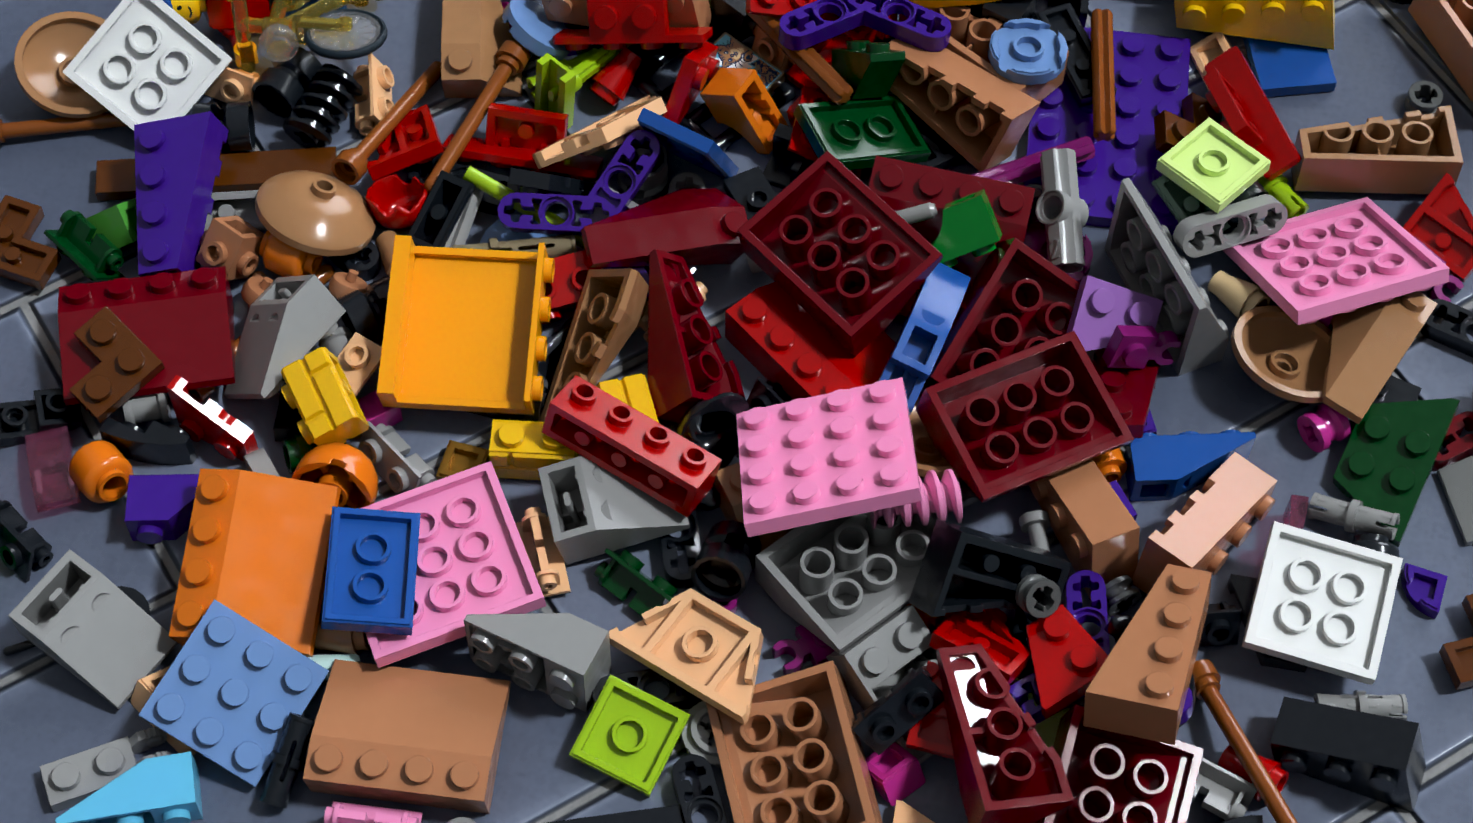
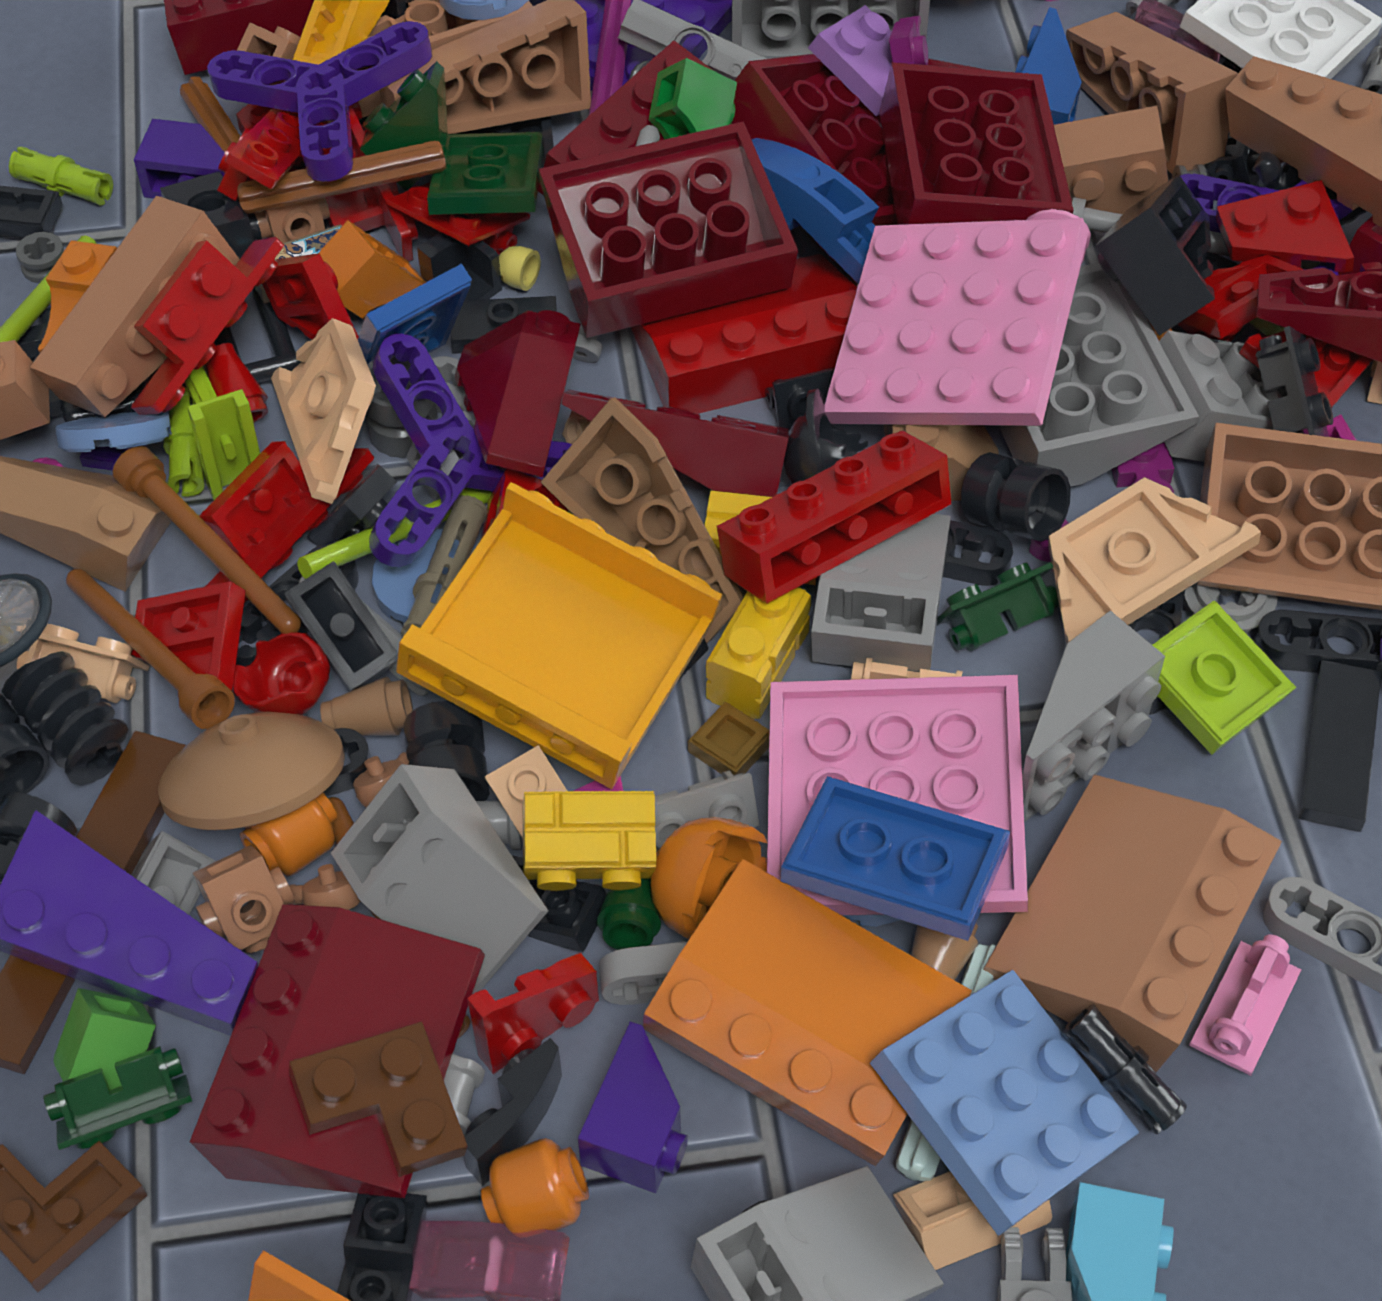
camera: 65 degrees left, 5 degrees down
(1026, 601) = (1211, 212): dark grey bush -> none

